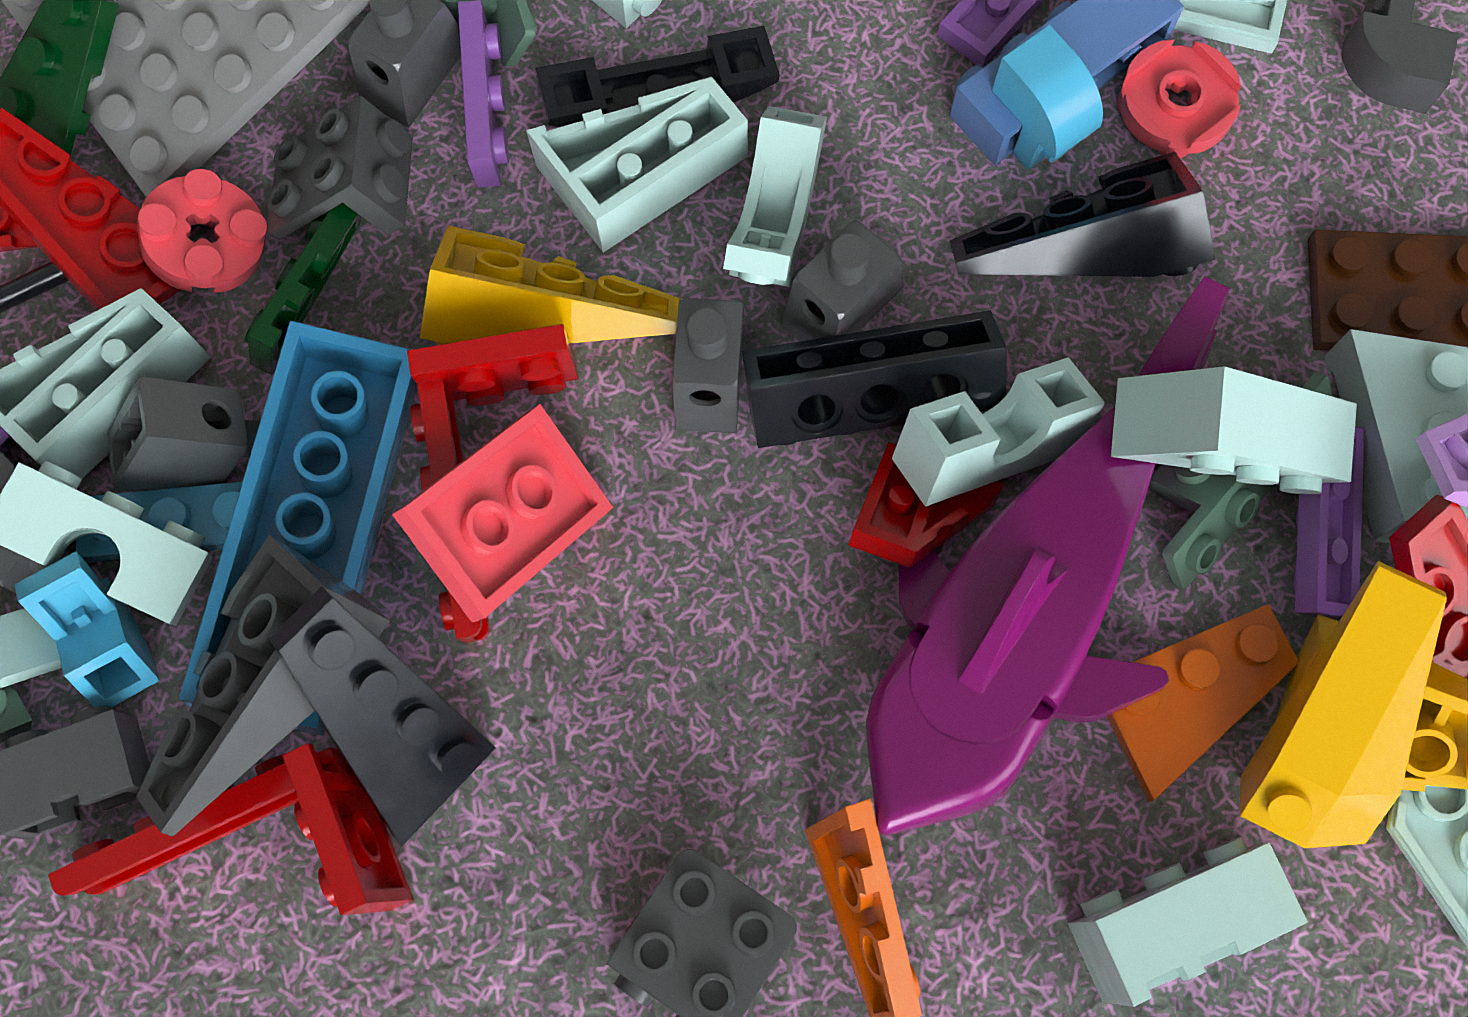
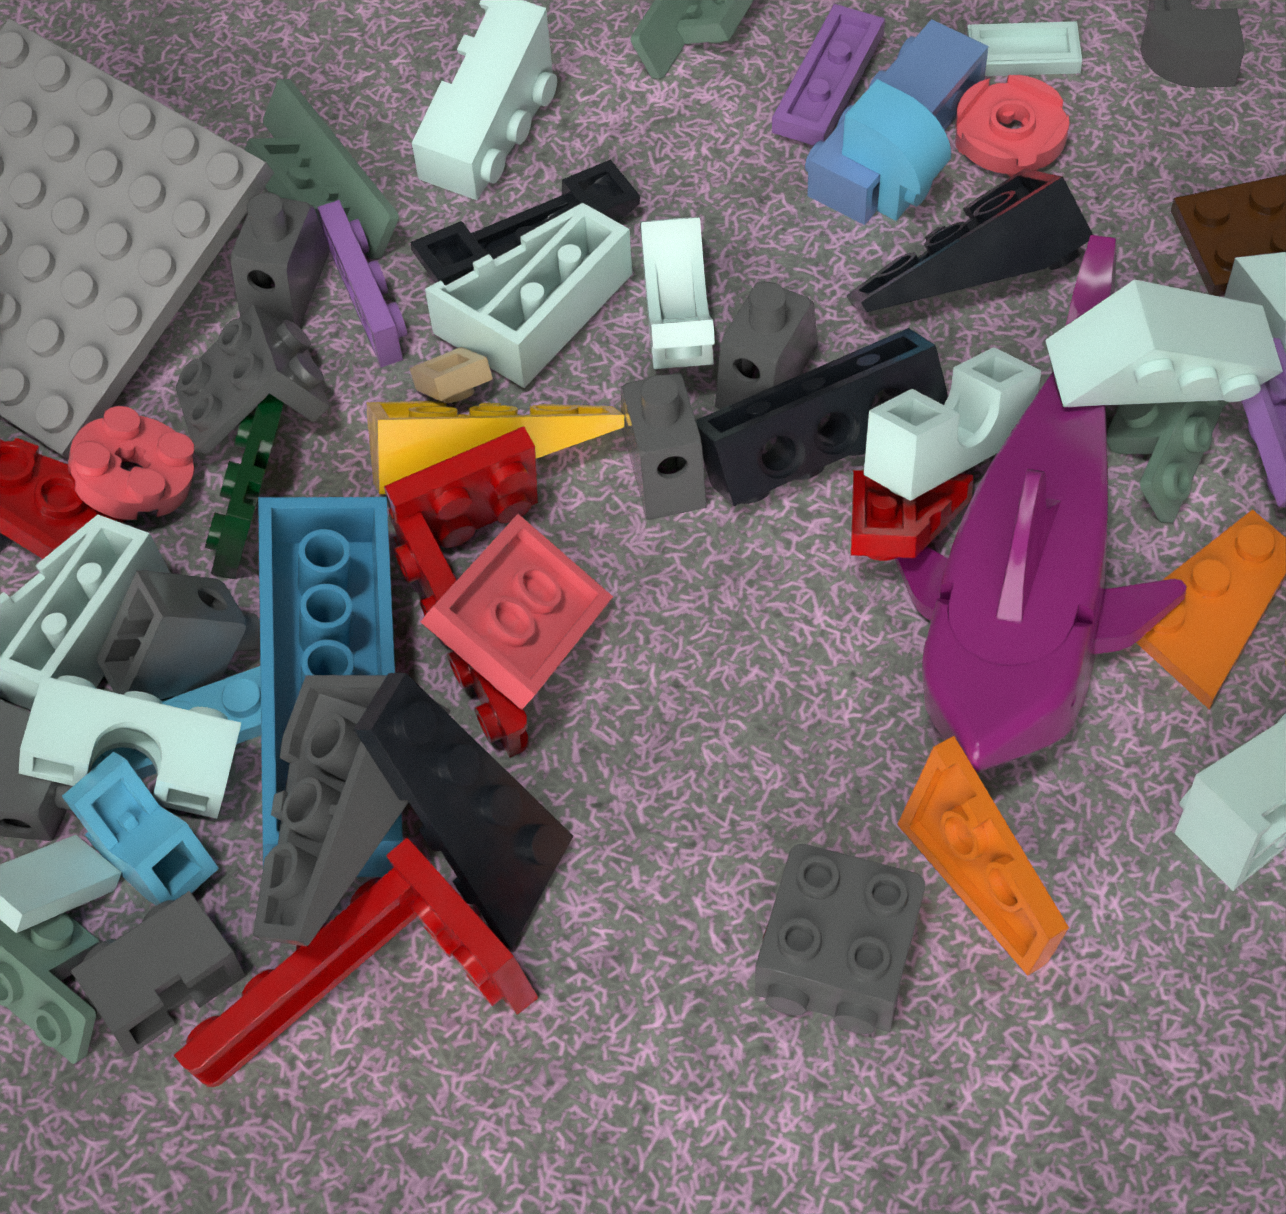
camera: 15 degrees left, 15 degrees down
(534, 221) = (451, 375): none -> tan plate

